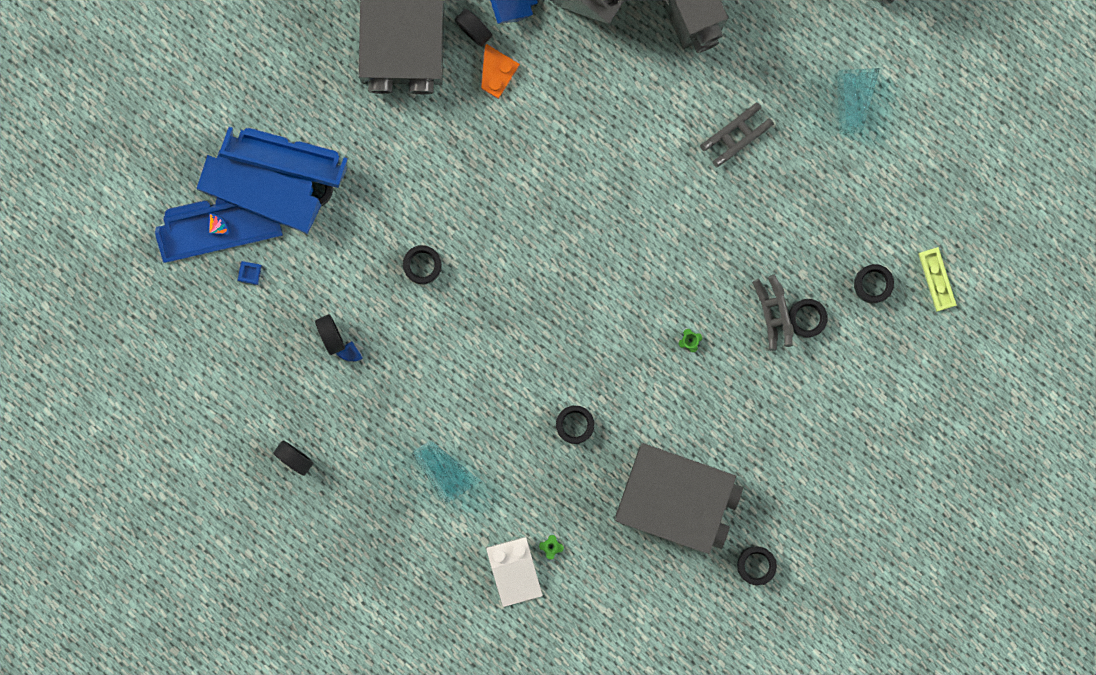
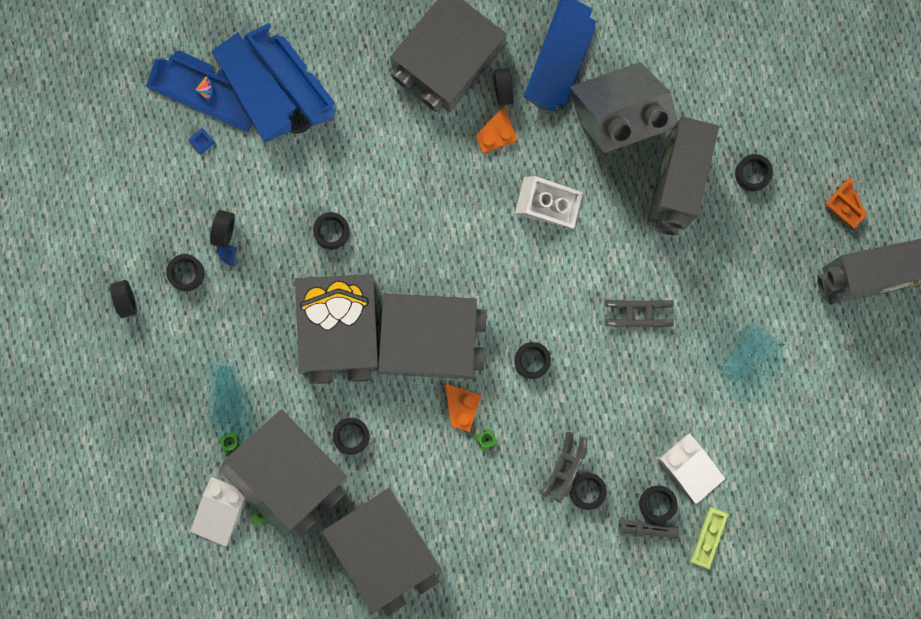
camera: 35 degrees right, 5 degrees down
(311, 395) = (185, 258): none -> black tyre
(476, 502) = (224, 440): none -> bright green plate
(493, 342) = (337, 327): none -> dark grey brick
(548, 499) = (284, 475): none -> dark grey brick
(578, 289) = (431, 336): none -> dark grey brick
(588, 98) = (548, 202): none -> white slope
(648, 328) = (461, 406): none -> orange wing
(678, 259) = (535, 346): none -> black tyre
(873, 316) = (638, 527): none -> dark grey pin
(879, 232) = (691, 468): none -> white slope

